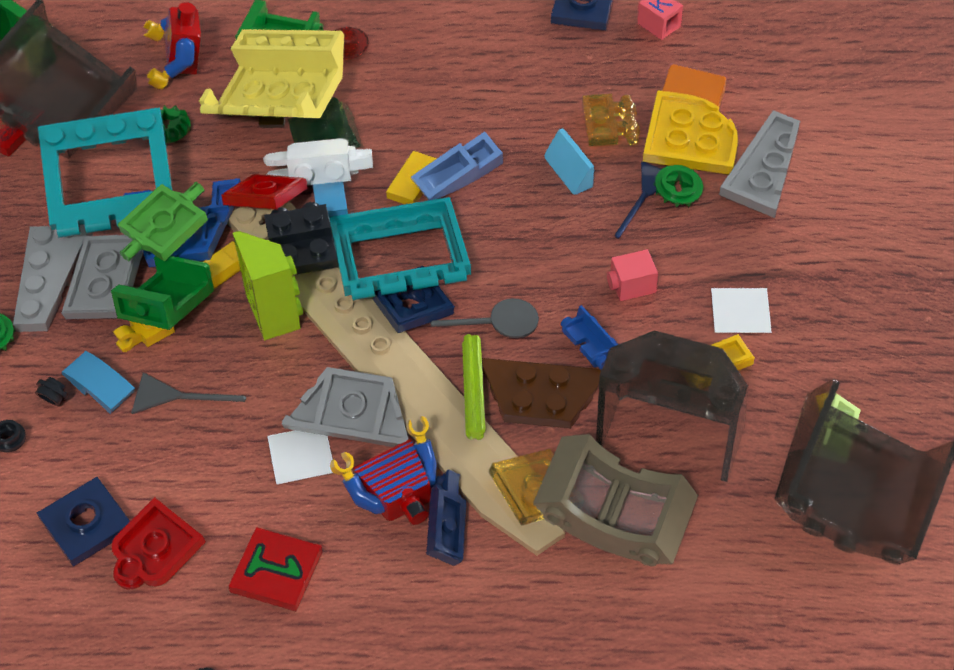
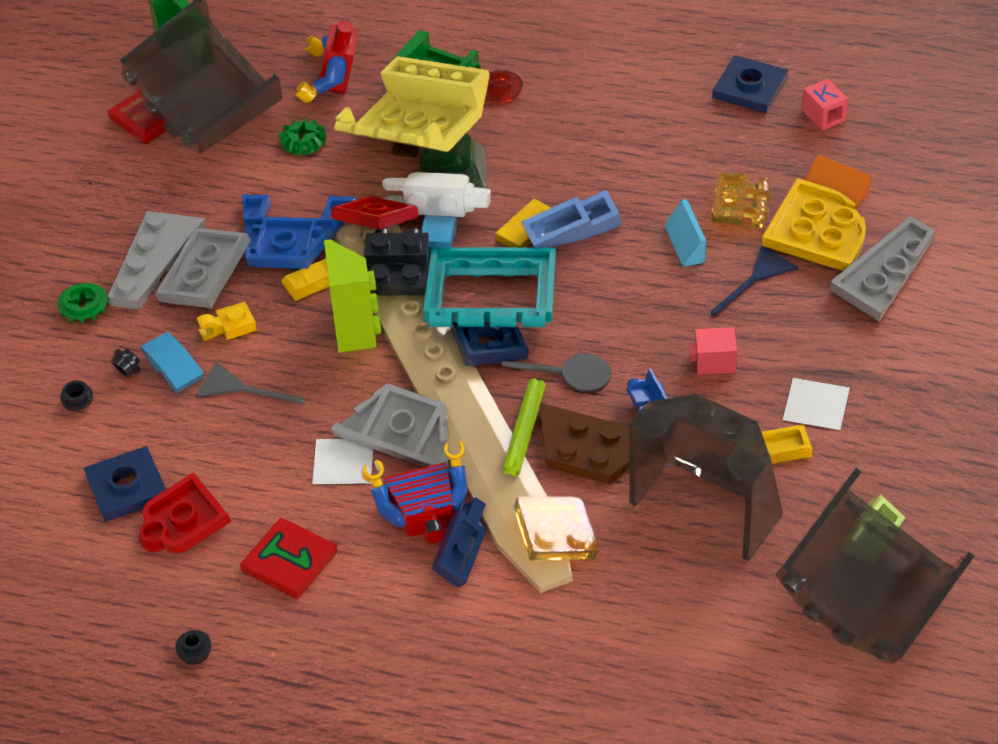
camera: 15 degrees right, 5 degrees down
(87, 134) = (236, 208): teal hinge -> none
(162, 222) = (268, 224): bright green plate -> none
(165, 296) = (256, 294): green panel -> none
(612, 506) = (625, 559): dark tan window -> none
(688, 179) = (781, 264): green gear -> none

